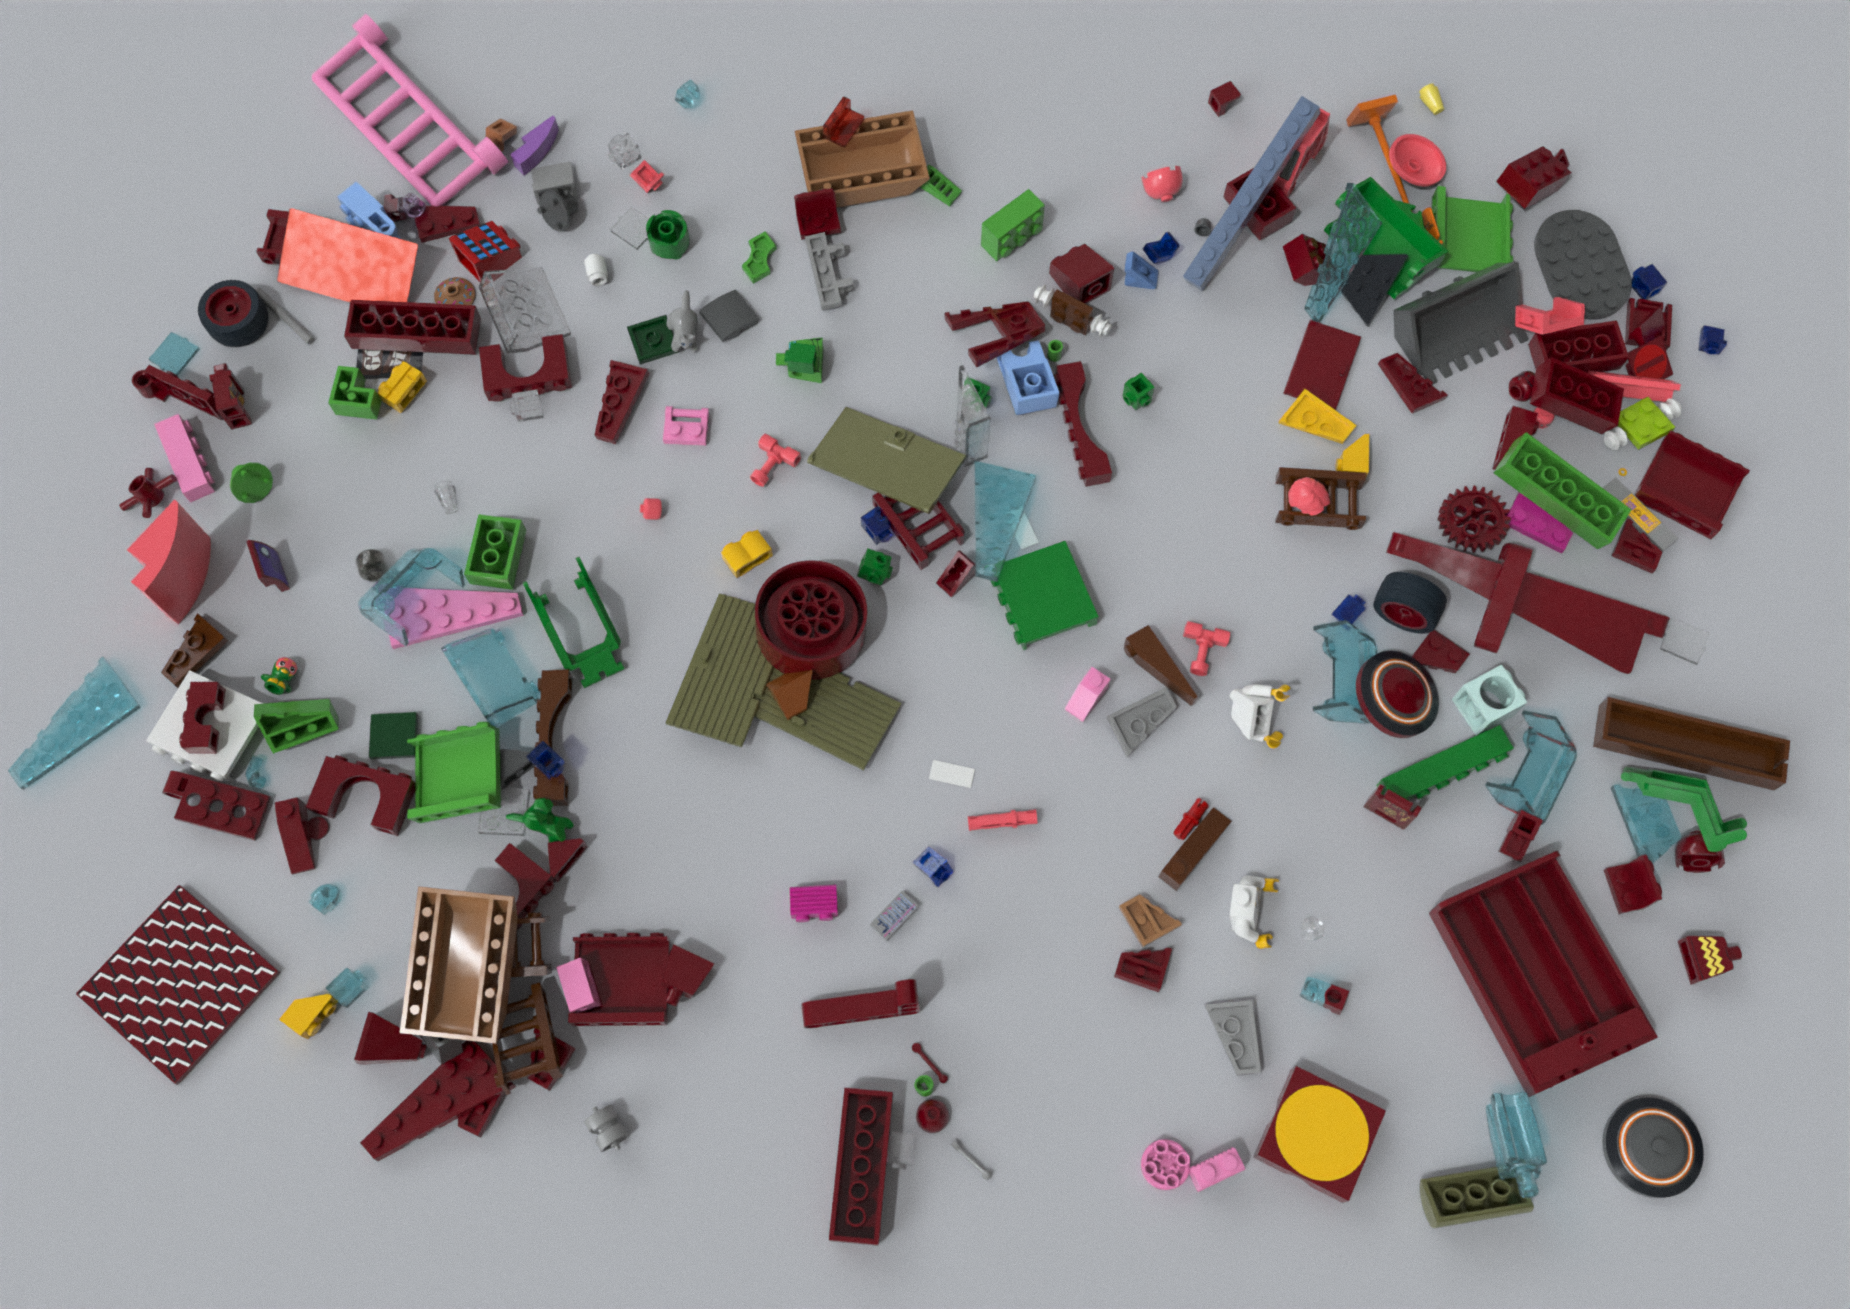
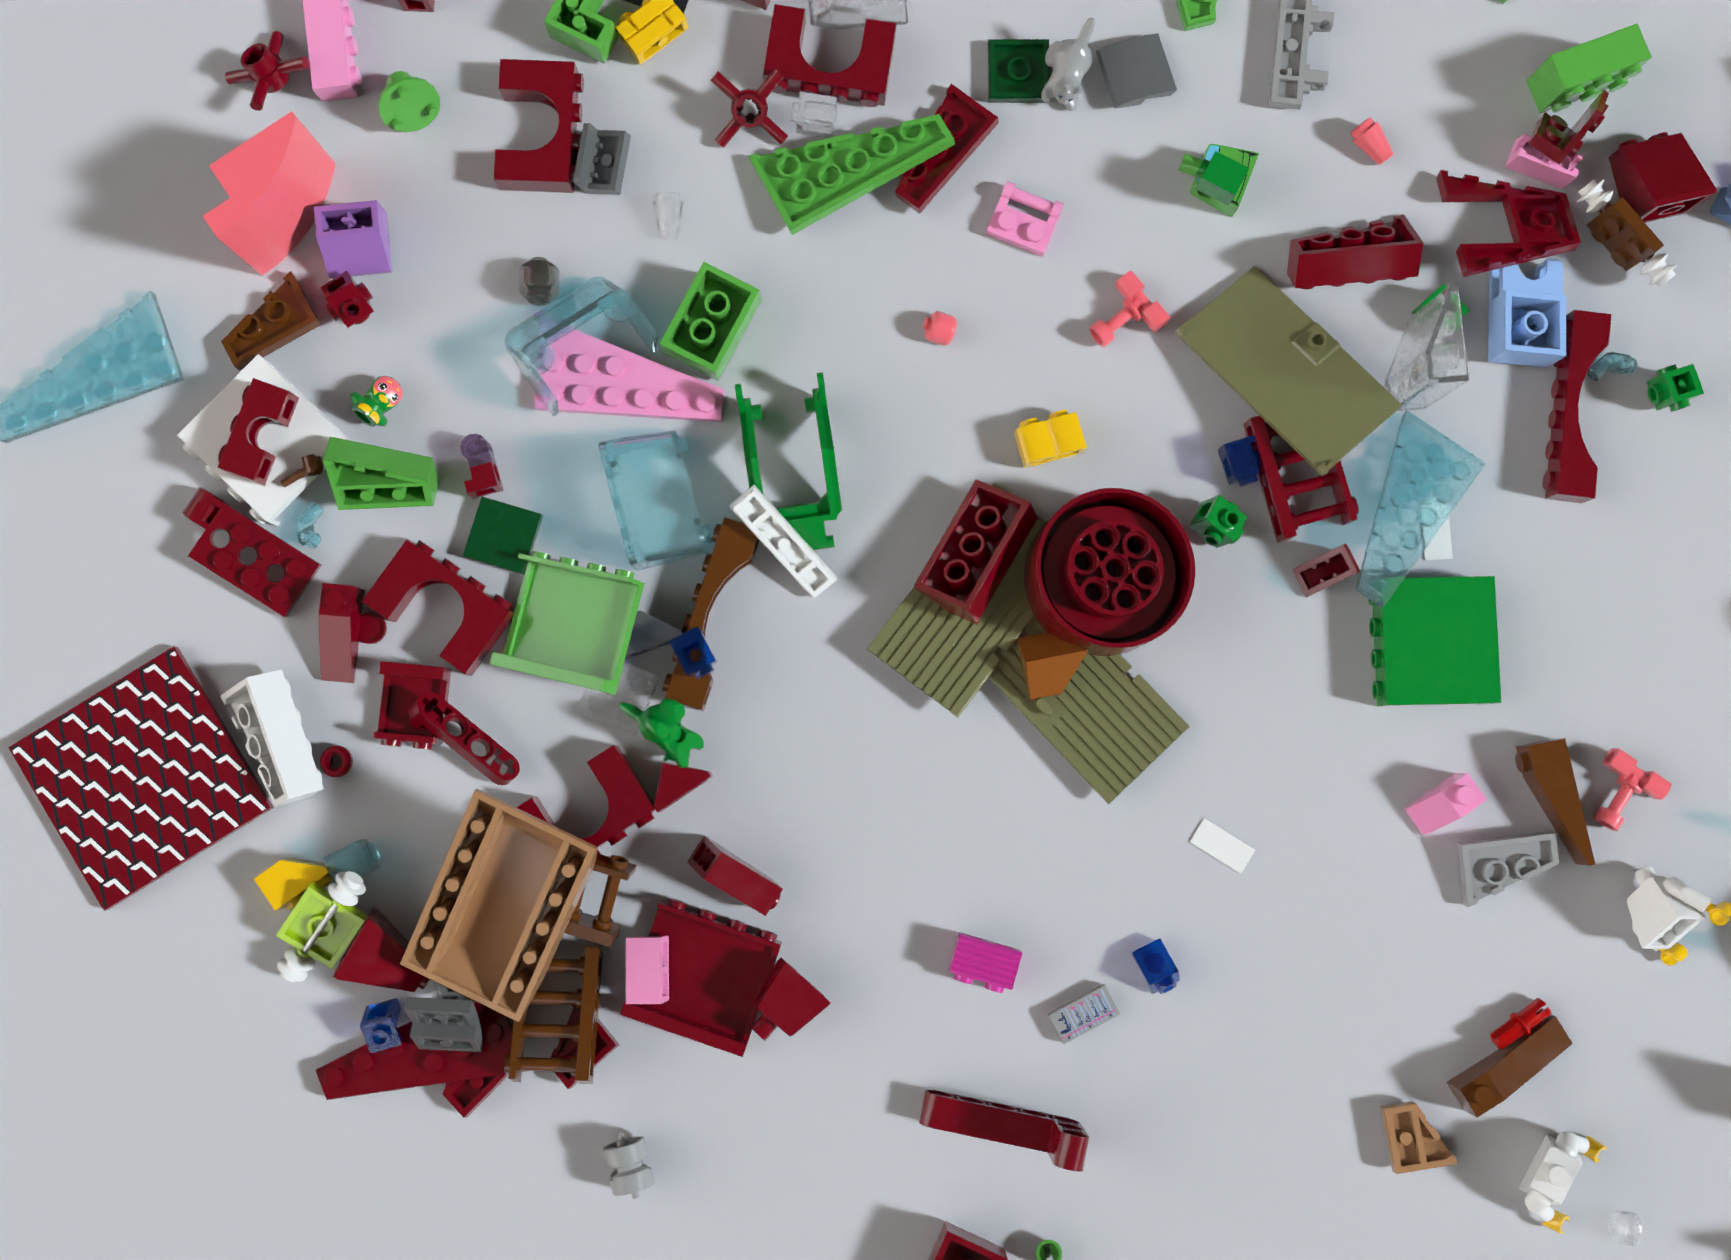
camera: 15 degrees right, 15 degrees up
(235, 578) = (353, 238): none -> medium lavender slope
(242, 617) = (347, 300): none -> dark red brick
(246, 729) = (311, 467): none -> reddish brown hand
(267, 565) = (400, 236): slope -> none
(267, 919) = (275, 736): none -> white wedge
(312, 919) = (326, 761): none -> dark red plate
(325, 898) = (355, 730): clear light blue piece -> none
(336, 1035) = (321, 926): none -> lime plate
(360, 490) = (554, 164): none -> dark red arch
(361, 866) = (400, 689): none -> dark red panel
(366, 694) = (482, 467): none -> leg
(372, 868) = (462, 744): none -> dark red beam
(391, 477) = (601, 160): none -> dark grey bracket
(400, 1093) = (380, 1025): none -> clear blue bracket
(444, 1068) = (444, 1024): none -> dark grey slope
(486, 405) = (750, 120): none -> dark red bar
(553, 433) = (838, 170): none -> bright green wing
(587, 672) = (783, 541): none -> white plate
(622, 903) = (735, 876): none -> dark red slope
(719, 635) = (976, 550): none -> dark red slope
(893, 308) = (1372, 140): none -> coral cone
(906, 379) = (1356, 255): none -> dark red wedge
(916, 1048) = (1054, 1198): dark red hinge -> none
(1006, 270) = (1557, 140): none -> dark red bracket
(1007, 289) = (1535, 164): none -> bright pink hinge
(1008, 819) = (1283, 940): coral pin -> none
(1055, 350) = (1583, 277): bright green hinge -> none
(1095, 391) = (1613, 363): none -> clear light blue arm
(1143, 968) = (1386, 1201): dark red wing -> none

